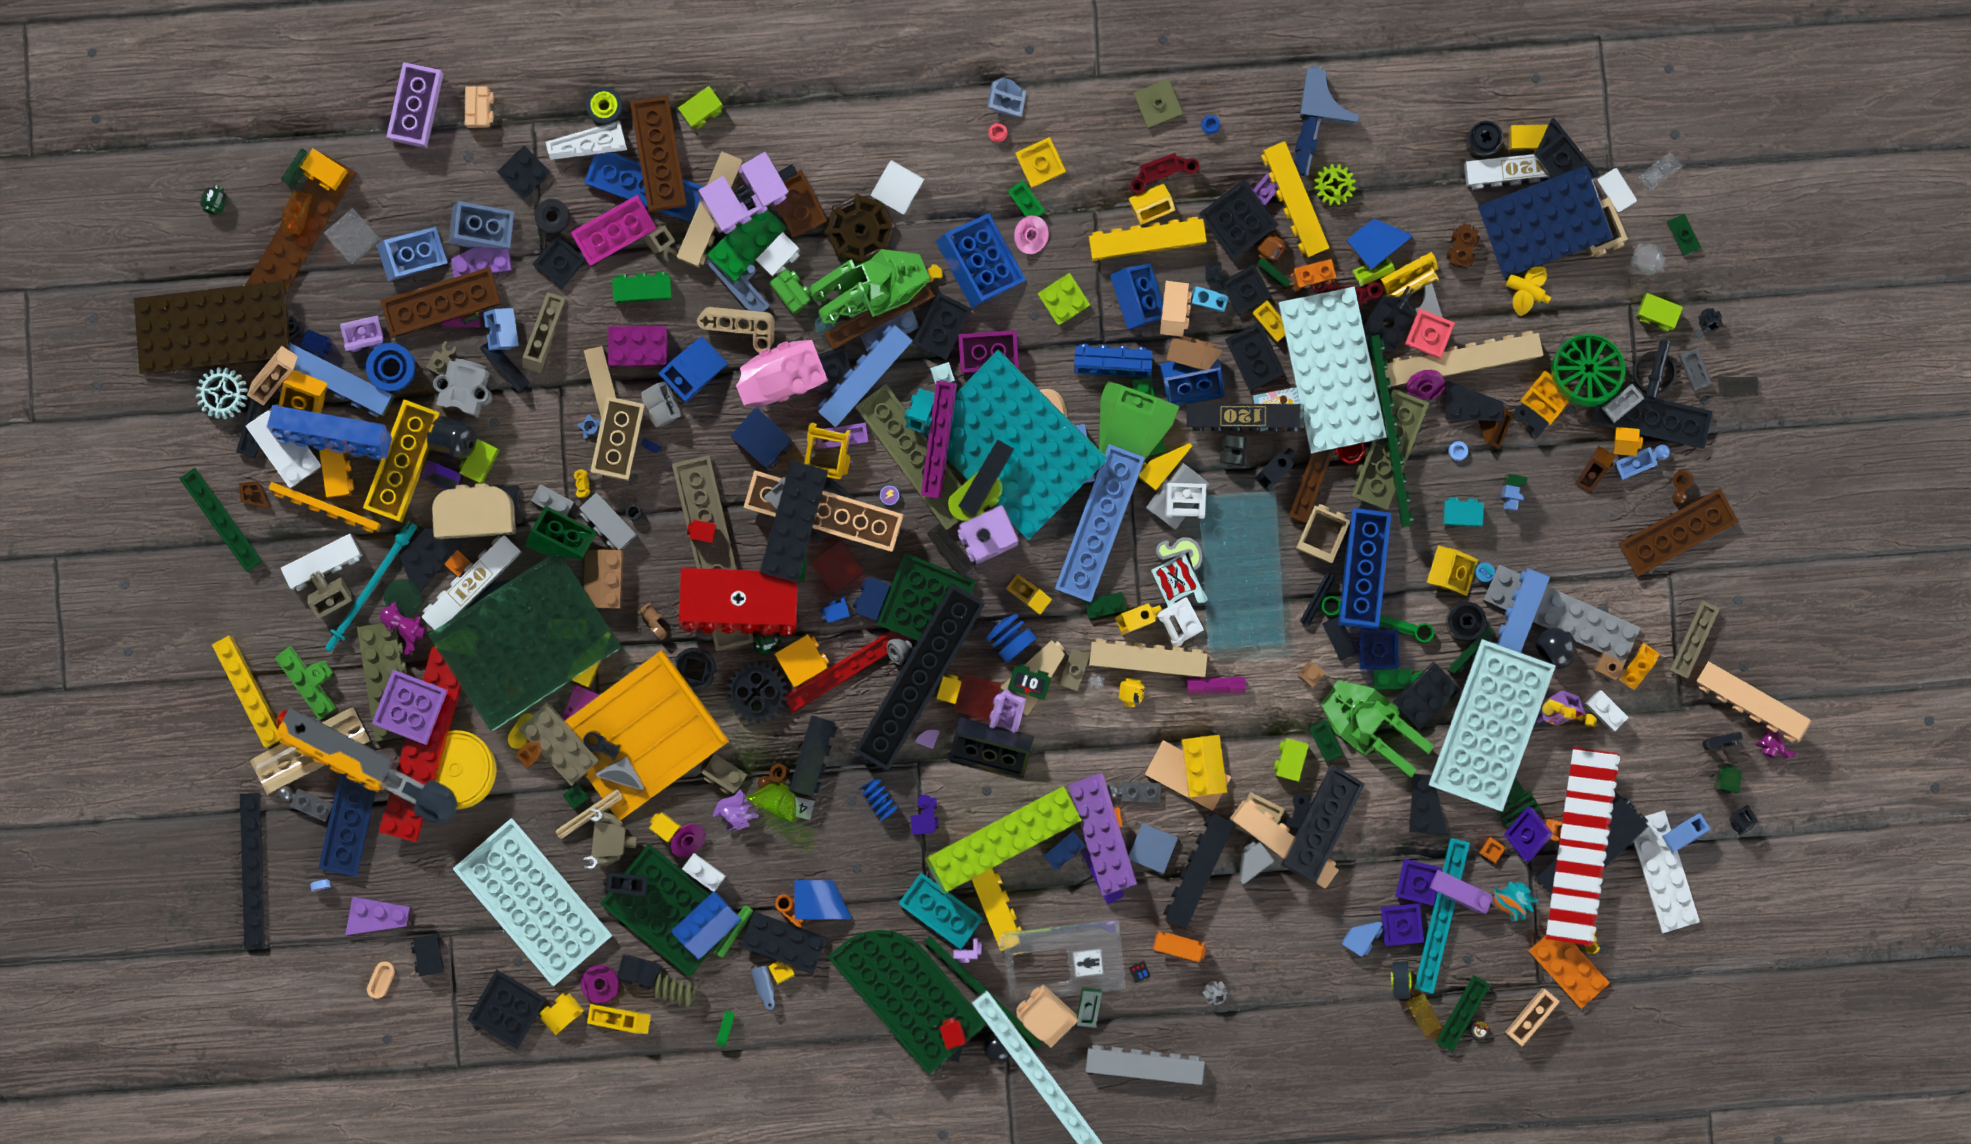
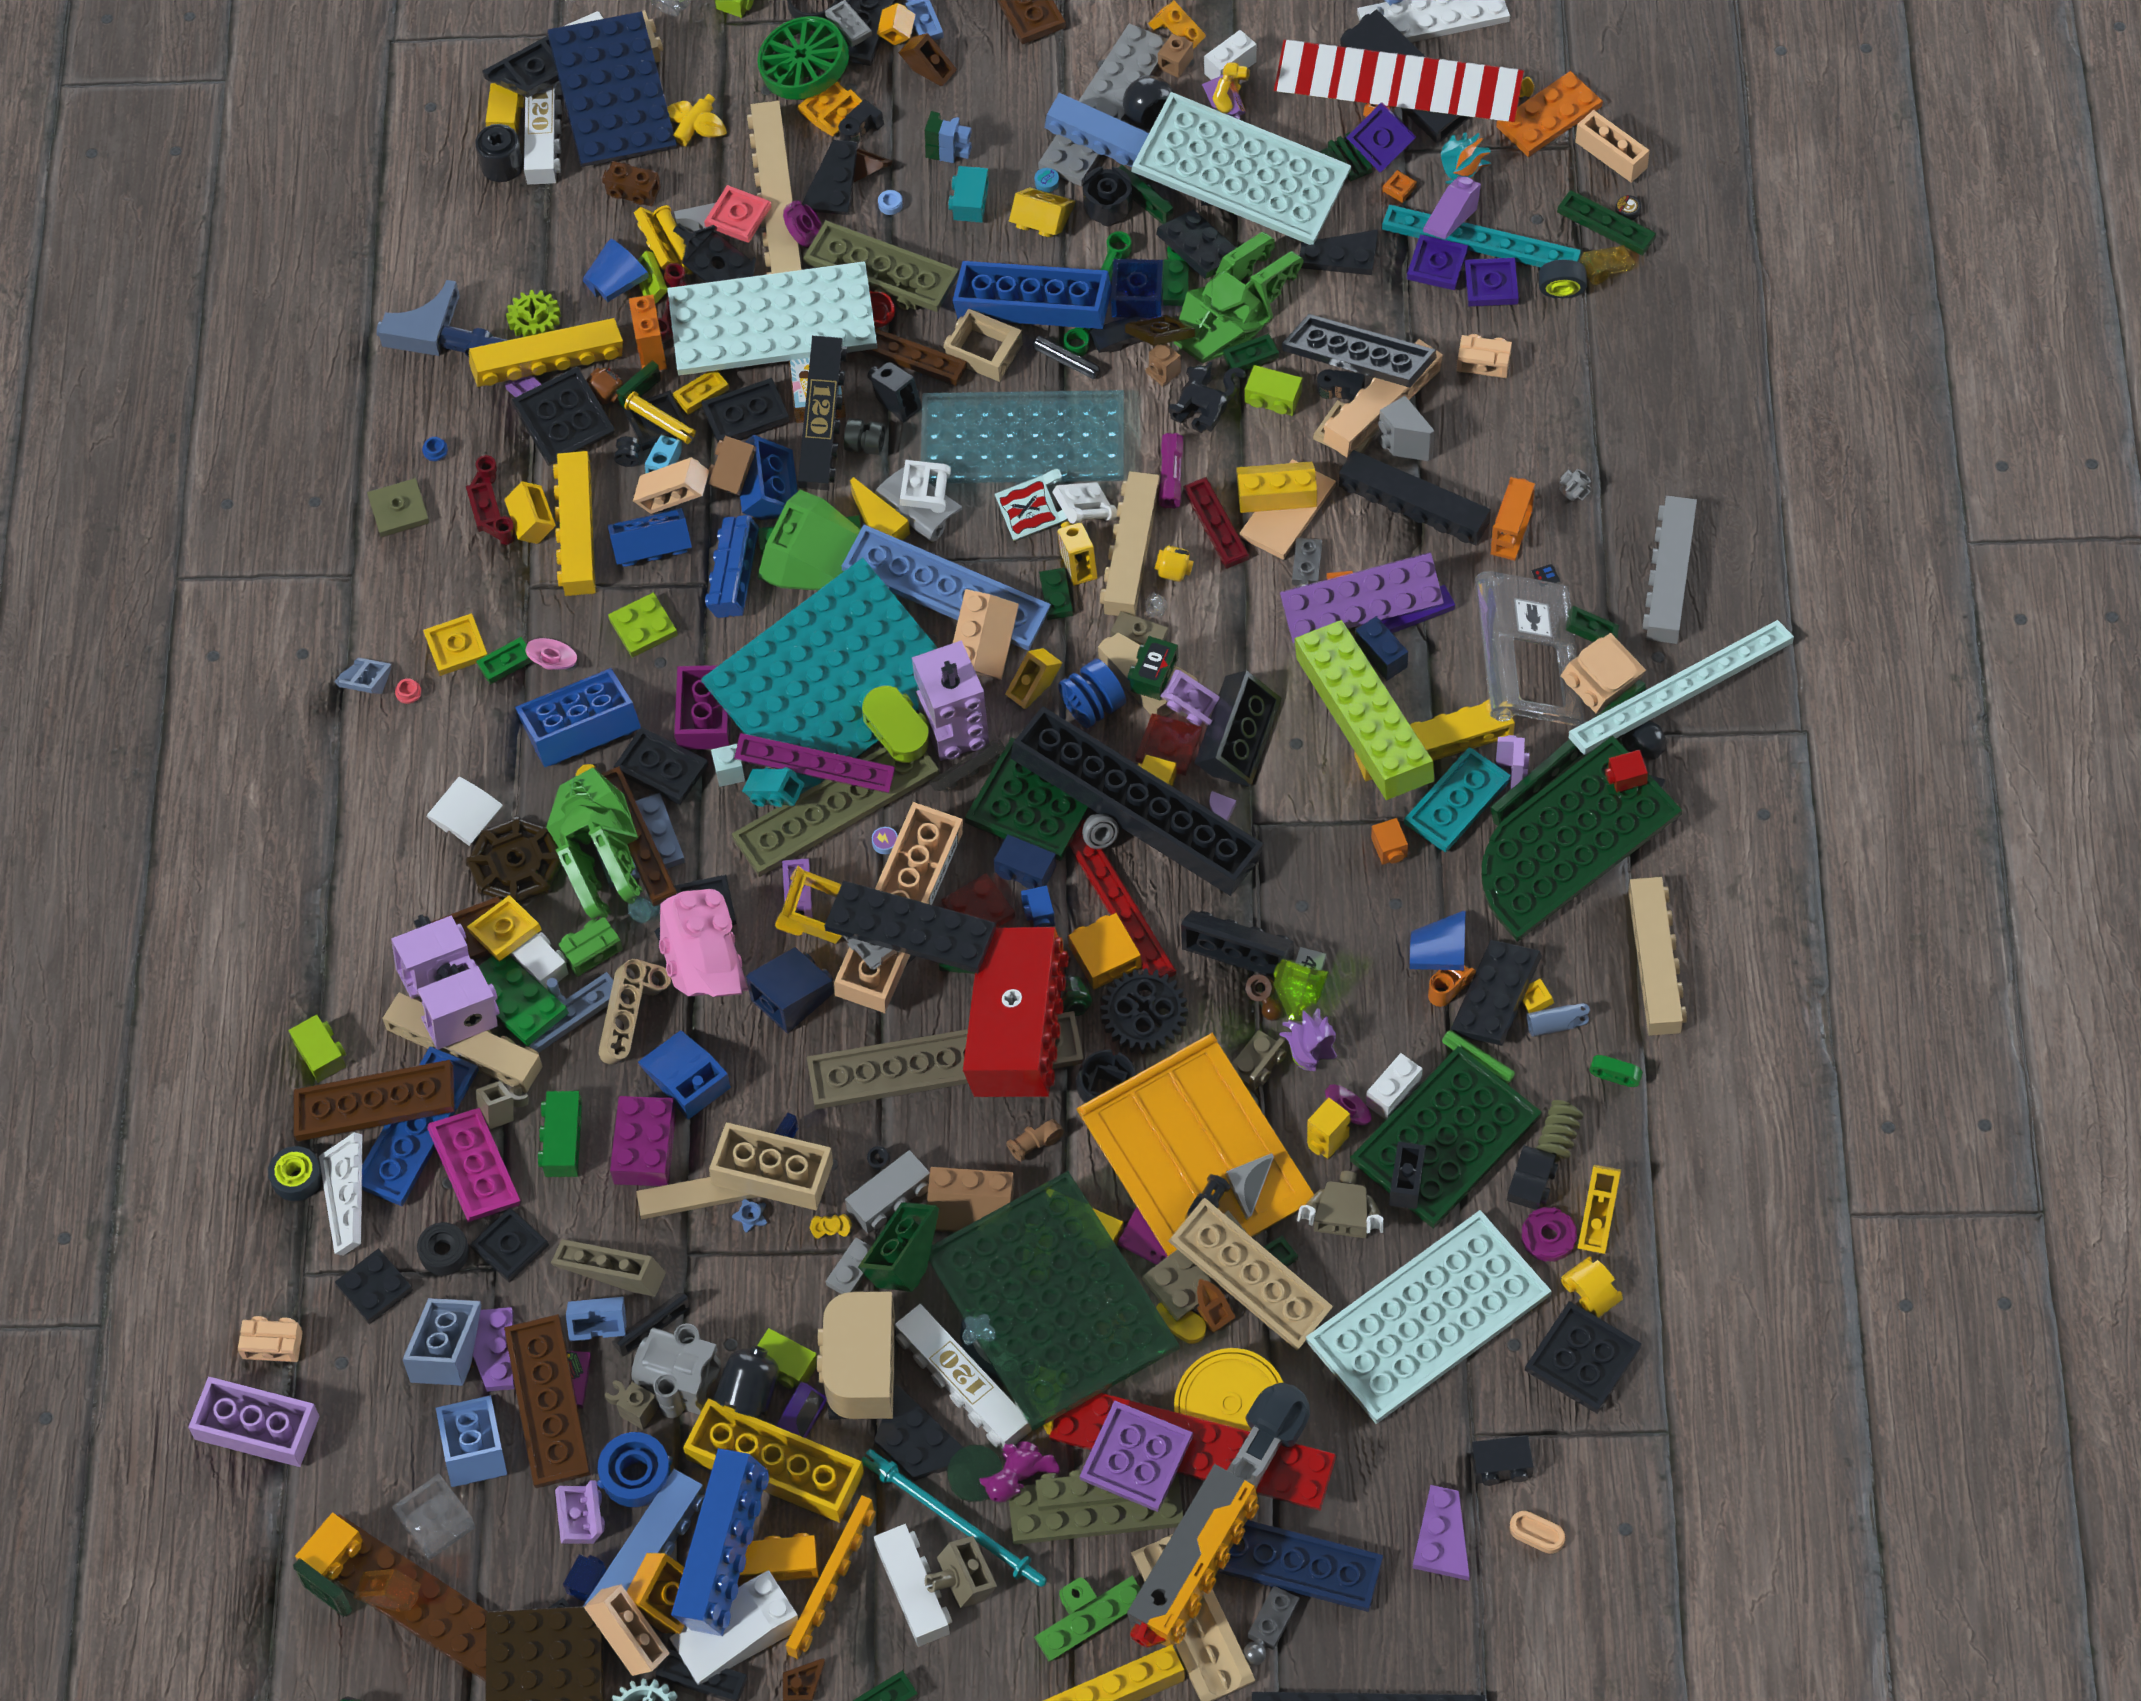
camera: 85 degrees left, 25 degrees down
(320, 885) = (1394, 1608): light blue tile -> none
(457, 563) = (931, 1398): orange plate -> none
(498, 592) = (978, 1328): none -> clear light blue piece
(550, 777) = (1250, 1273): none -> tan plate
(583, 817) = (1305, 1234): tan axle -> none
(660, 404) = (732, 1108): light grey brick -> none
(702, 531) = (913, 1062): red brick -> none
(706, 925) = (1466, 1082): blue slope -> none
(796, 229) = (504, 928): none -> yellow tile
(818, 1056) = (1655, 956): none -> tan brick
(865, 375) = (717, 856): medium blue brick -> none
(878, 799) = (1301, 863): blue piece -> none
(901, 862) = (1389, 841): none -> orange brick
(925, 821) = (1332, 808): dark purple brick -> none
(986, 477) = (872, 698): black tile -> none
(1057, 554) = (986, 631): none -> light nougat slope
(1152, 848) = (1379, 547): sand blue tile -> none
(1173, 722) = (1216, 522): none -> dark red tile
(1181, 546) = (985, 501): animal -> none
(1241, 293) = (659, 417): none -> yellow pin
(1279, 708) = (1202, 399): none -> black animal
(1331, 920) = (1484, 356): none -> light nougat brick
(1337, 669) = (1159, 330): none -> dark brown tile
(1360, 937) = (1507, 322): medium blue slope -> none
(1390, 423) = (872, 253): dark green plate -> none

